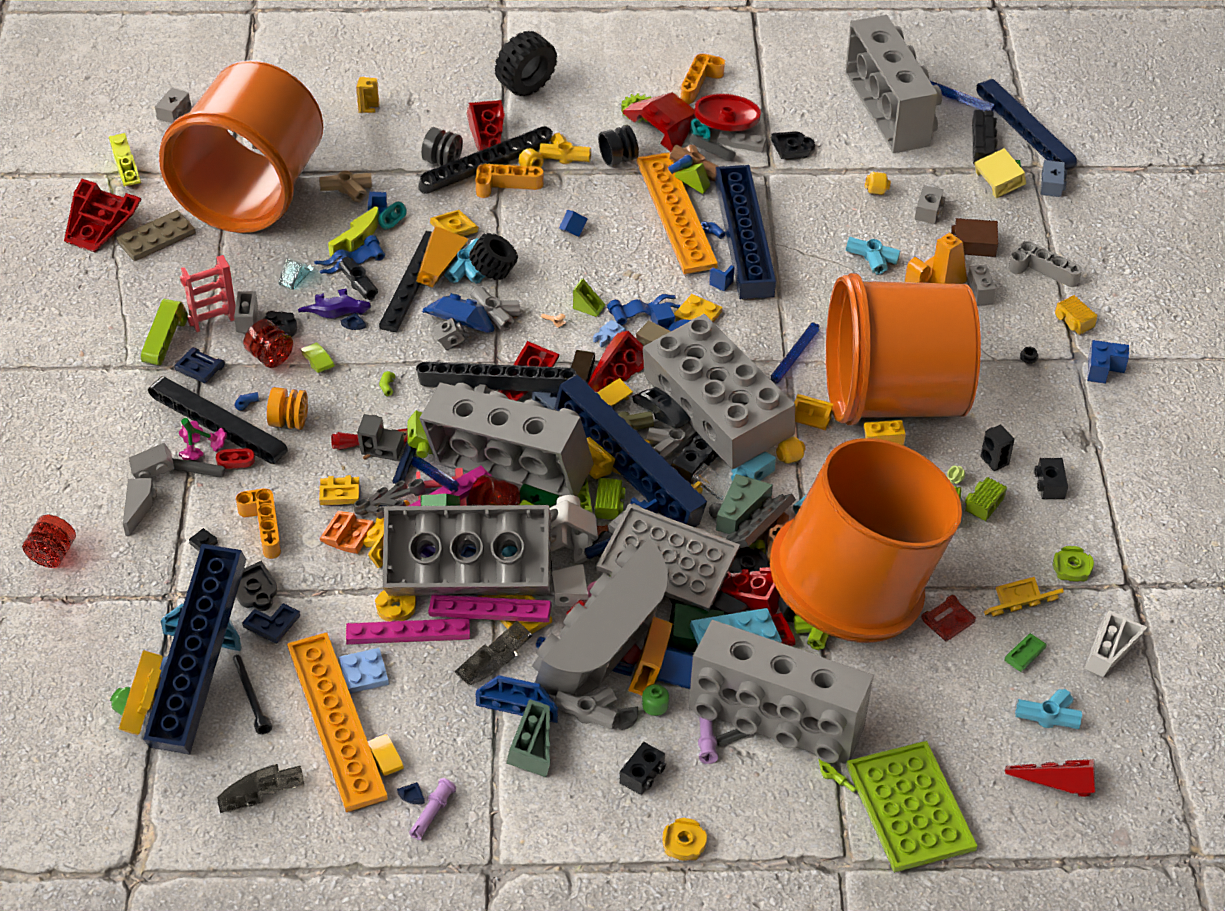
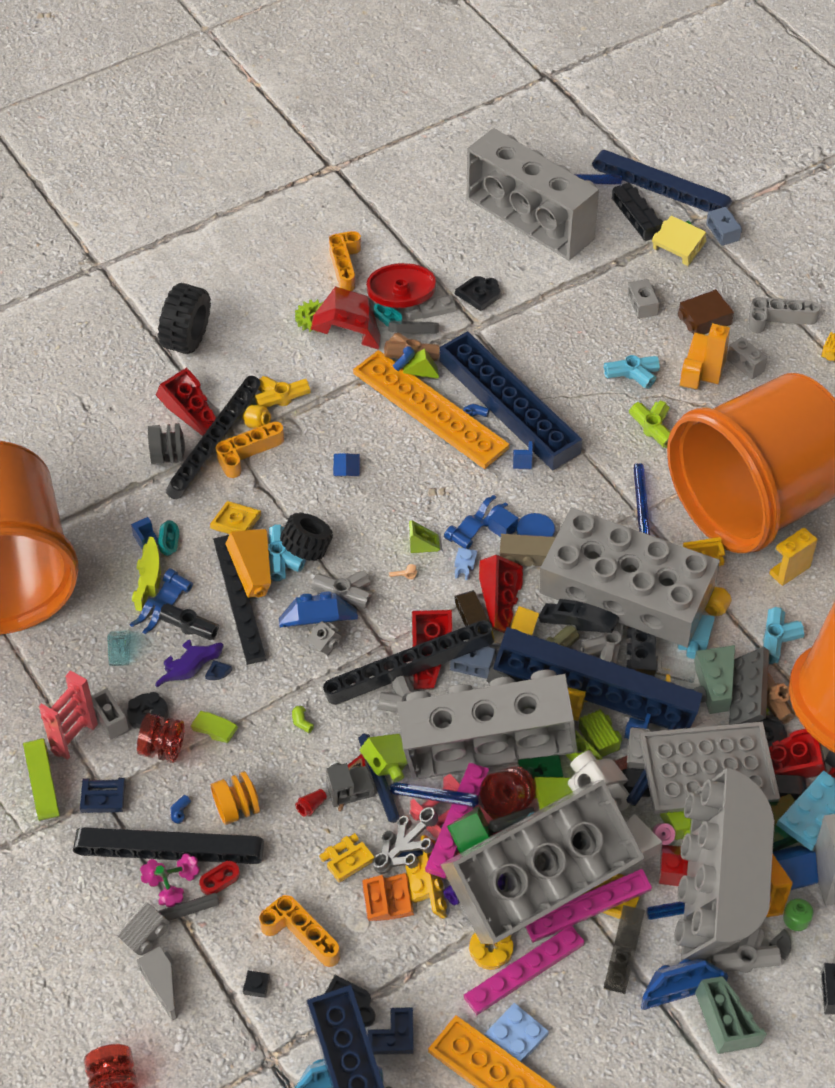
camera: 30 degrees left, 5 degrees up
(347, 183) = (97, 524): tan piece -> none
(367, 94) = (45, 419): yellow hinge -> none
(618, 145) = (331, 365): black wheel -> none
(697, 306) = (527, 500): yellow plate -> none
(877, 183) = (584, 297): yellow head -> none

